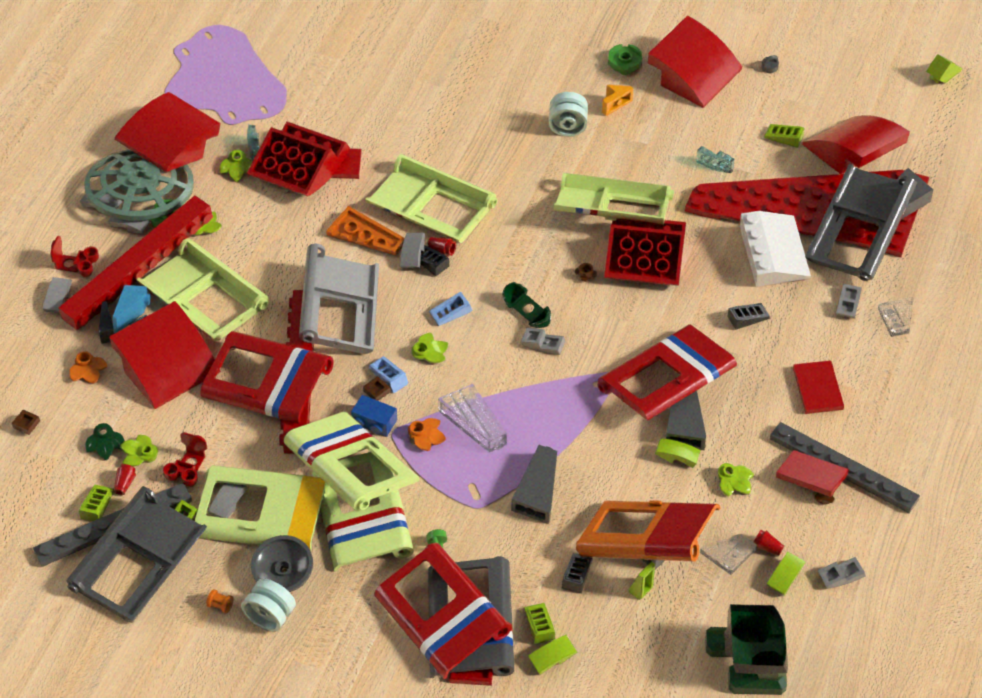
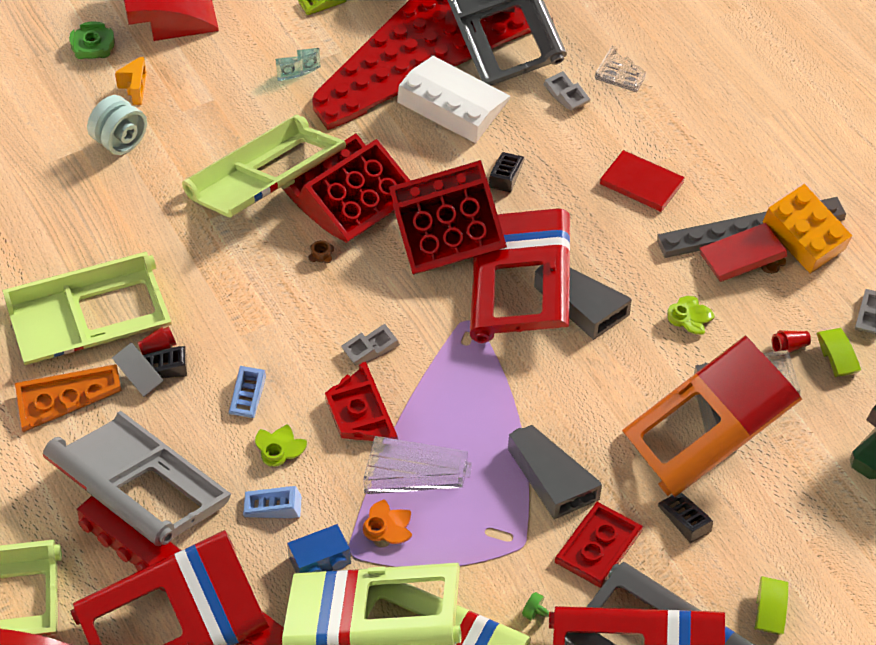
camera: 50 degrees left, 0 degrees up
(376, 389) = (284, 527): reddish brown plate -> none
(491, 366) = (359, 407): none -> red wing
(515, 542) = (598, 544): none -> red tile
(516, 297) = (297, 327): dark green piece -> none
(543, 635) = (725, 600): lime slope -> none
(643, 582) = (753, 467): lime slope -> none
(666, 307) = (447, 217): none -> red slope
(673, 450) = (615, 334): lime slope -> none
(865, 492) = (807, 228): none -> light orange brick

